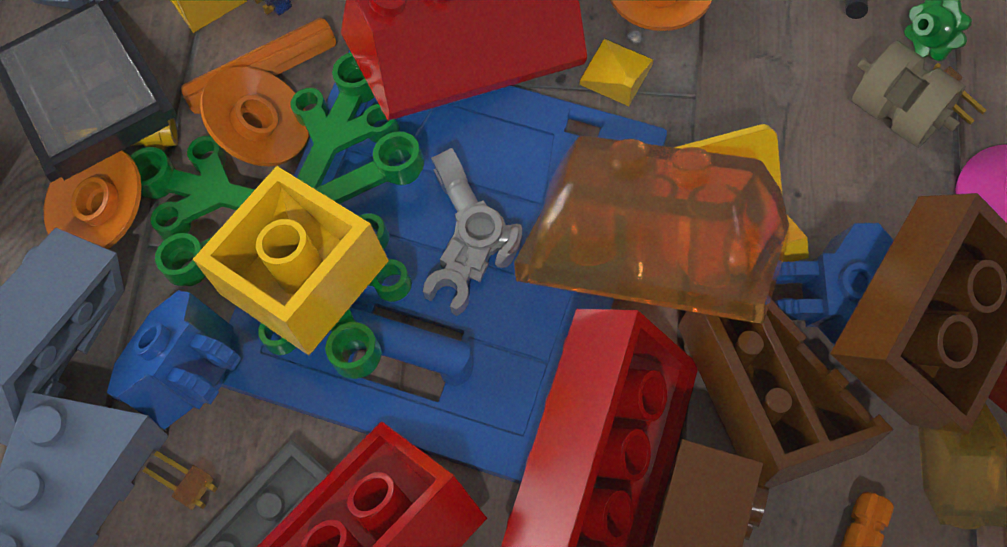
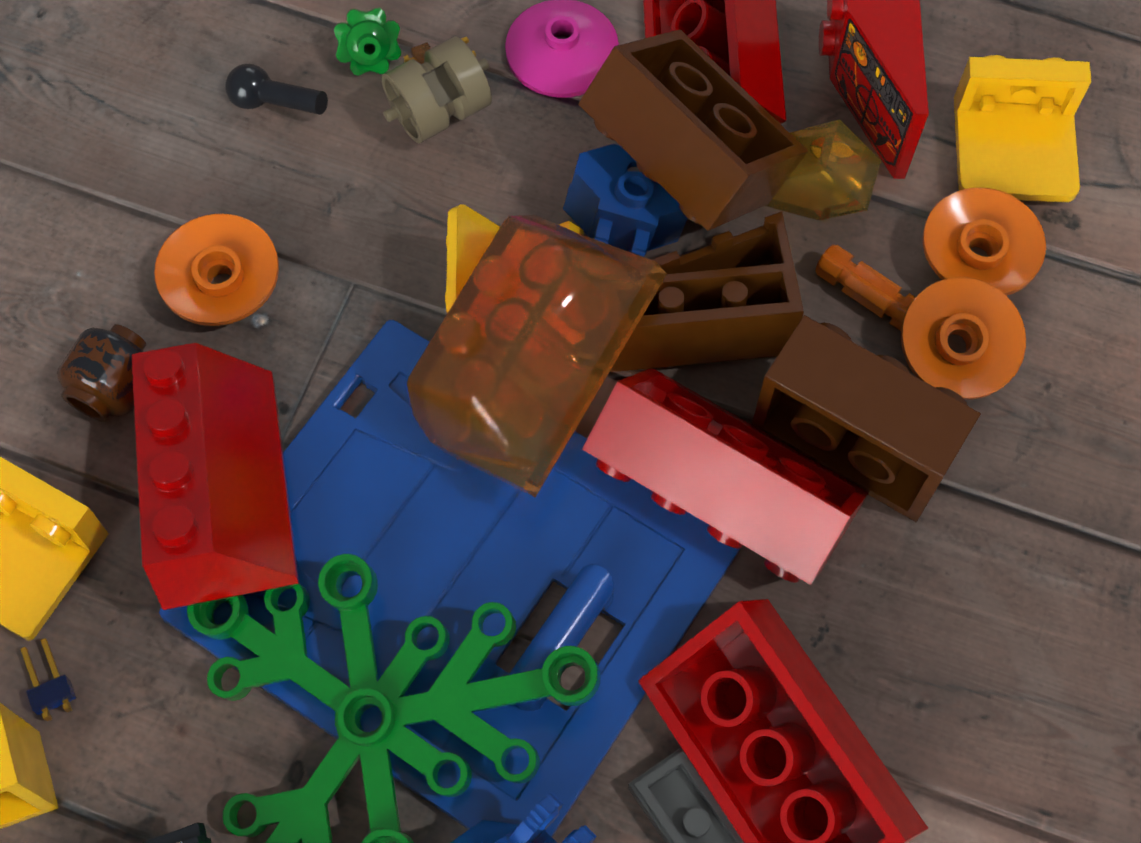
camera: 80 degrees left, 0 degrees up
(252, 116) = (222, 743): orange dish -> none
(272, 57) = (145, 732): orange axle -> none
(292, 259) = (457, 708): yellow slope -> none
(477, 236) = (454, 532): light grey piece -> none
(616, 72) = (301, 347): yellow slope -> none

